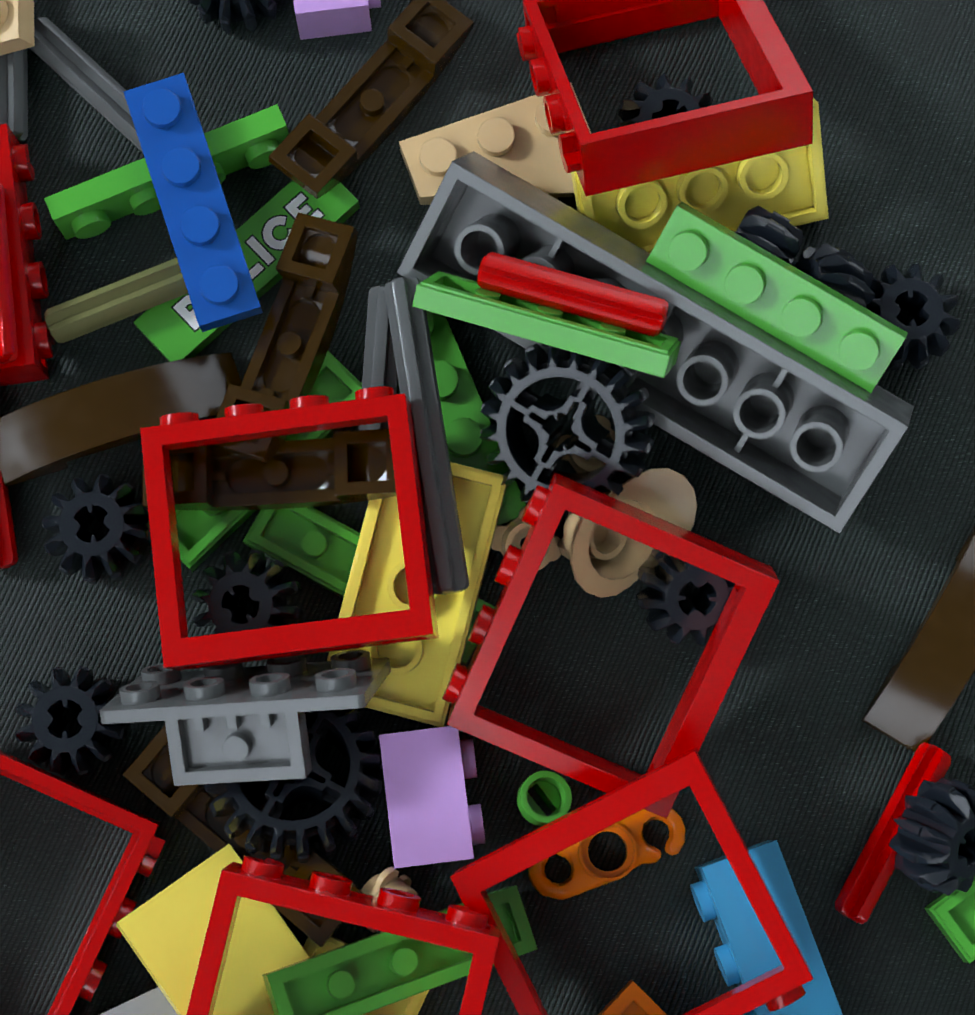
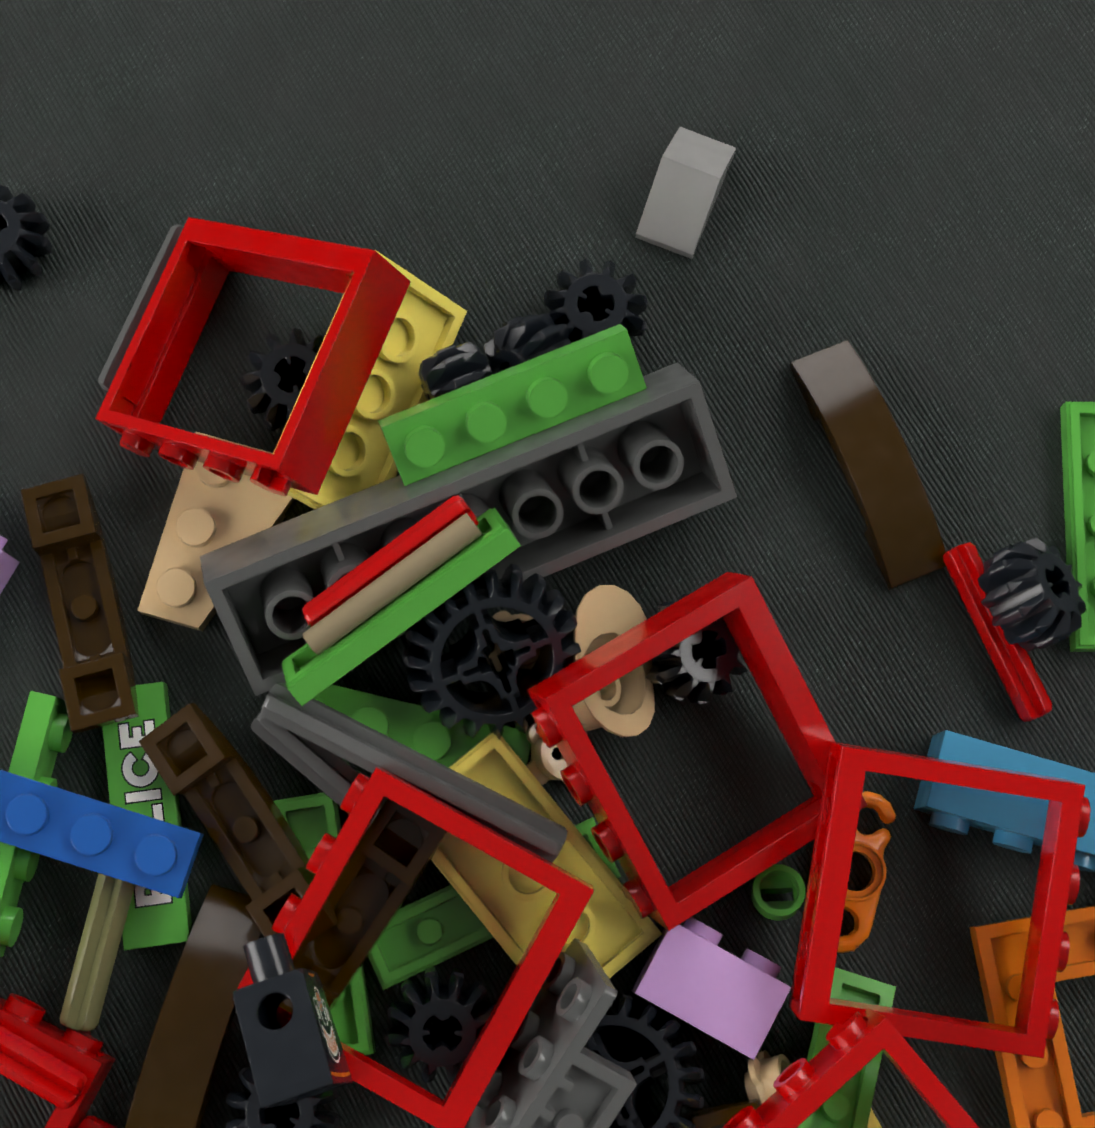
camera: 55 degrees left, 0 degrees up
(153, 468) = (306, 1052): none -> black torso
(559, 302) = (392, 584): none -> dark tan bar

